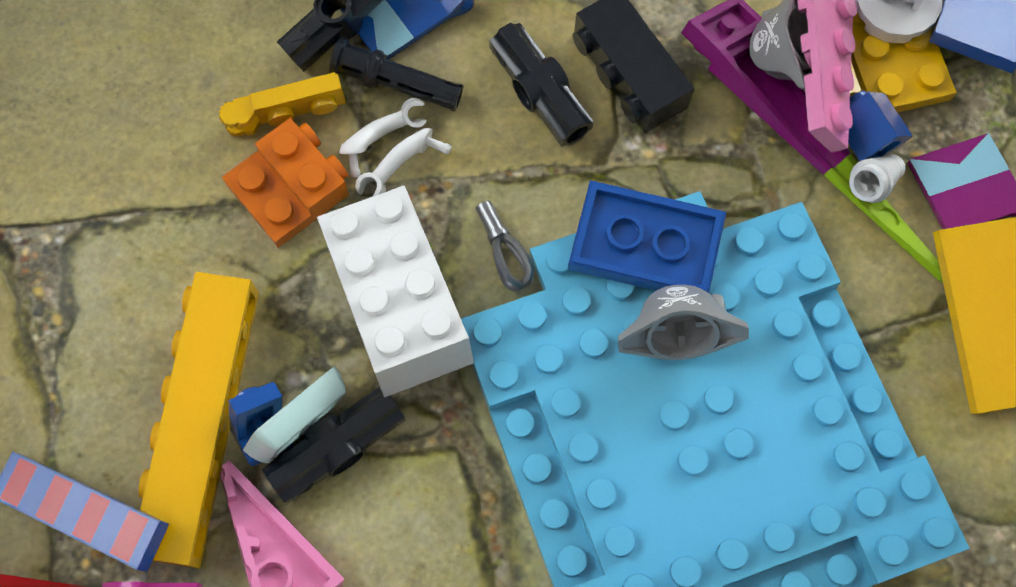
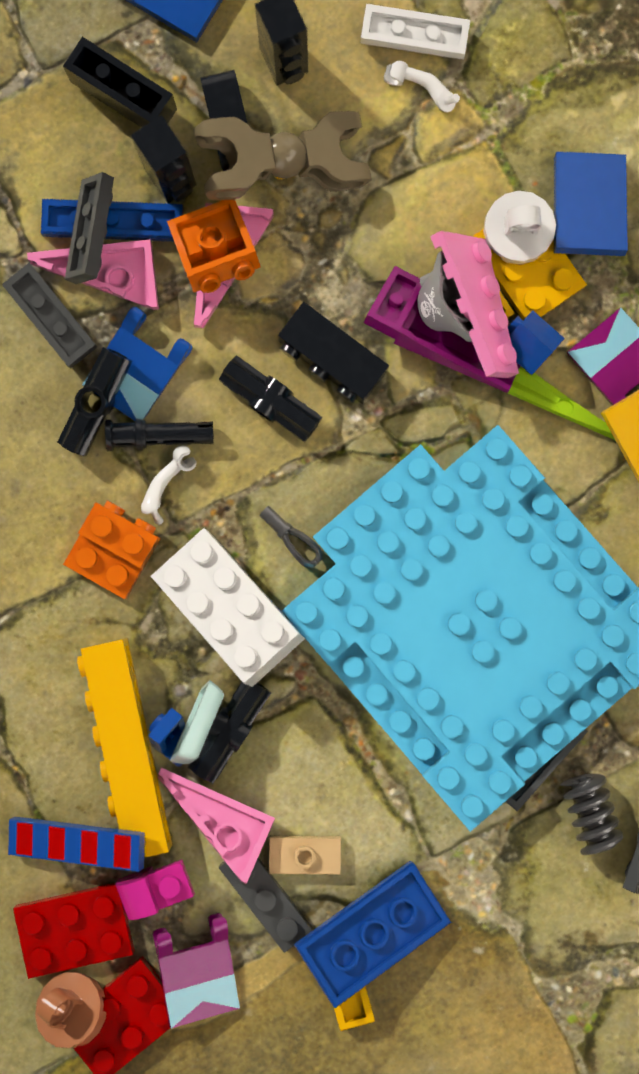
camera: 20 degrees left, 15 degrees up
(280, 103) = (82, 492): yellow hinge -> none
(397, 156) = (188, 498): white piece -> none
(646, 239) = (396, 502): blue tile -> none
(682, 325) = (442, 560): light grey hat -> none
(876, 177) = (546, 384): white cone -> none

